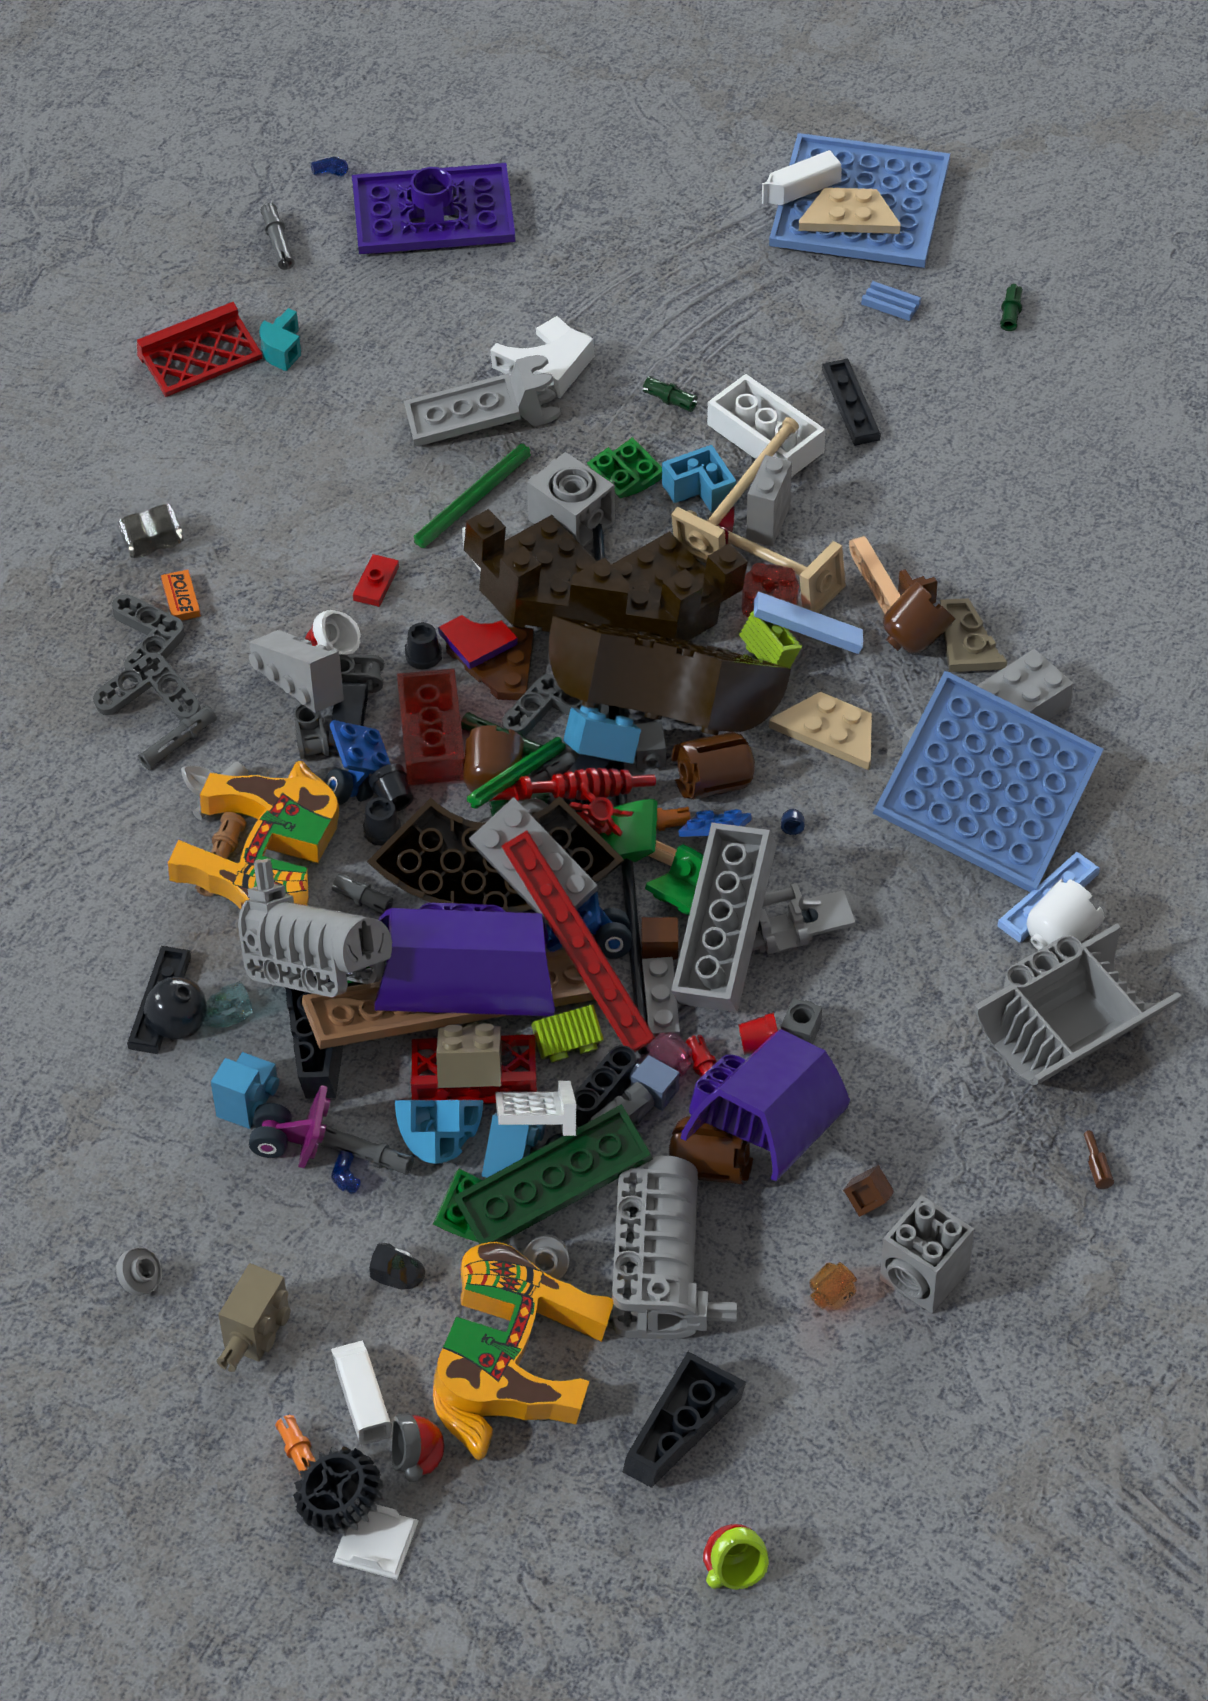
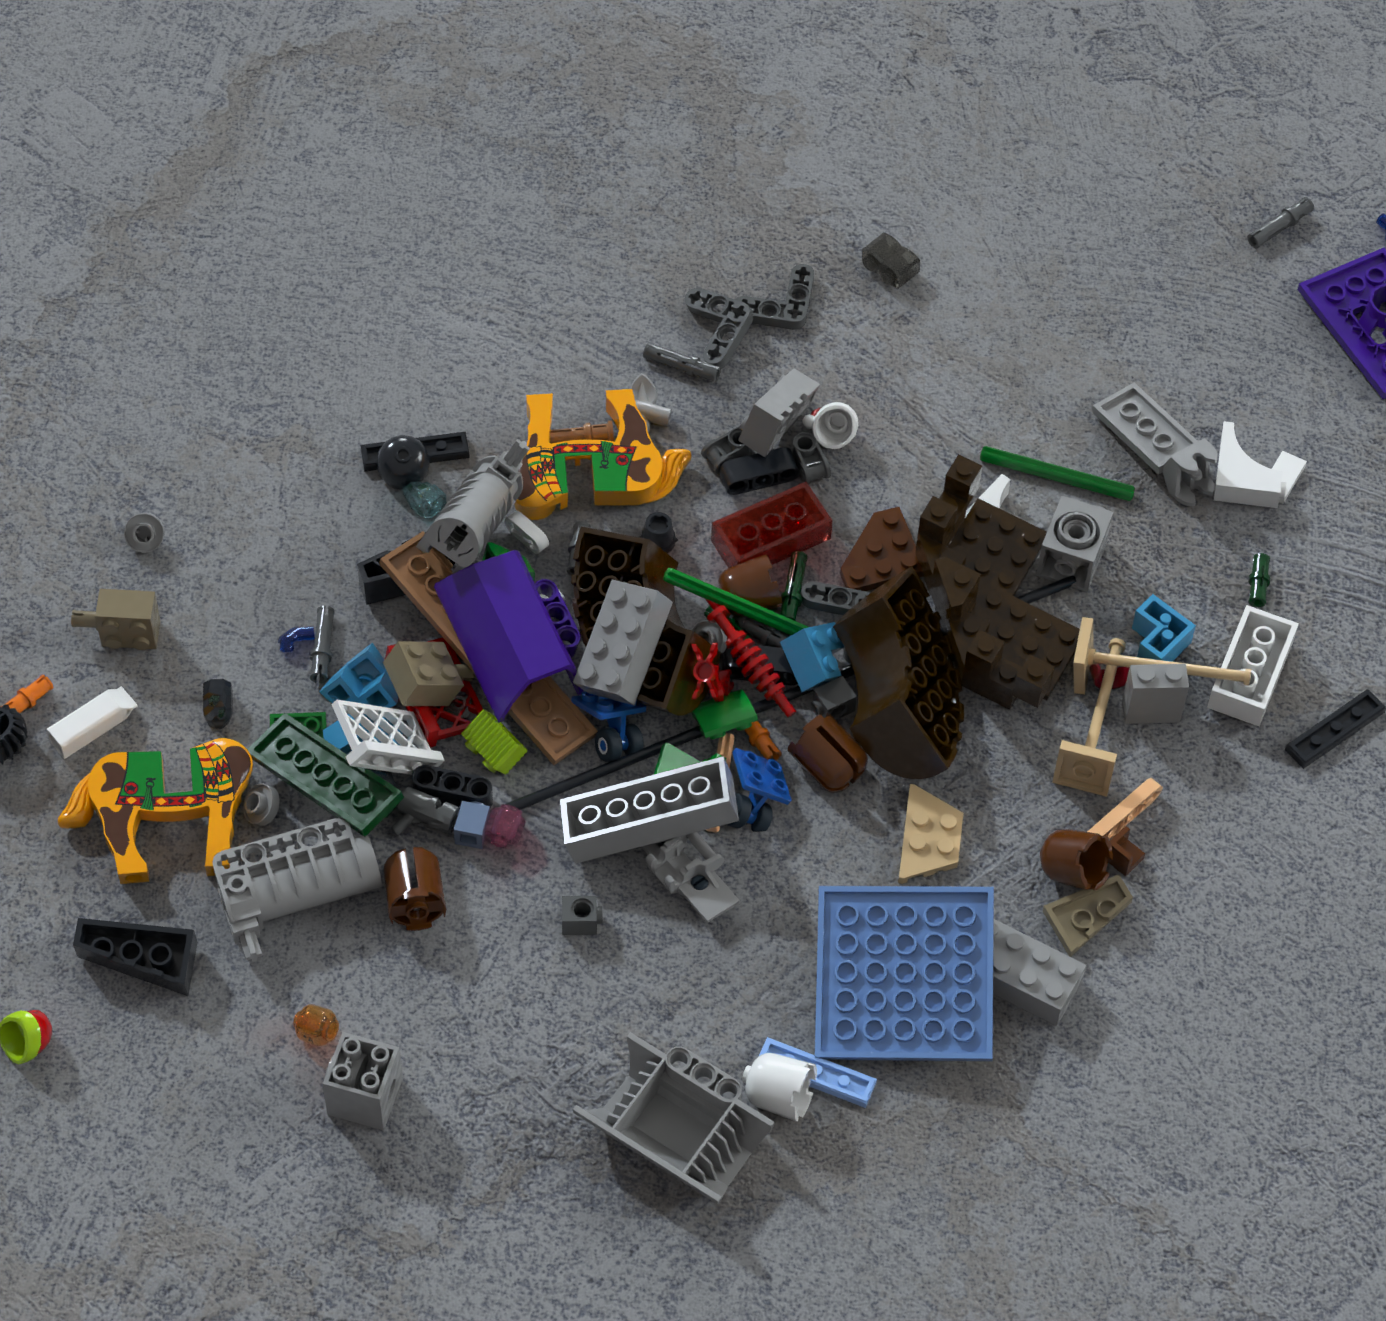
camera: 65 degrees right, 5 degrees up
(180, 595) = (835, 308): orange tile -> none
(189, 334) = (1122, 199): red fence -> none
(243, 1087) = (341, 537): dark azure brick -> none
(276, 1129) = (327, 592): plate -> none
(279, 340) = (1153, 265): teal brick -> none
(361, 753) = (711, 490): blue plate -> none
(375, 580) = (923, 438): red plate -> none
(392, 783) = (695, 528): black piece -> none
(416, 1446) = (48, 773): piece -> none
(422, 646) = (862, 496): black piece -> none
(477, 641) = (882, 530): red tile -> none
(578, 942) = (562, 706): red tile -> none
(627, 468) = (1151, 574): green slope -> none
(659, 937) = (623, 770): reddish brown panel -> none
(660, 1001) = (547, 809): light grey plate -> none
(701, 1056) = (510, 857): red pin -> none
(756, 1032) = (552, 886): red piece -> none
(769, 641) = (994, 751): lime brick -> none
(770, 580) = (1046, 729): clear red brick -> none
(772, 1099) = (459, 907): dark purple panel -> none
(792, 822) = (804, 838): dark blue hinge -> none
(808, 622) = (1027, 773): light blue tile -> none
(868, 1190) = (426, 1022): reddish brown panel -> none
(1098, 1163) = (532, 1198): reddish brown axle -> none

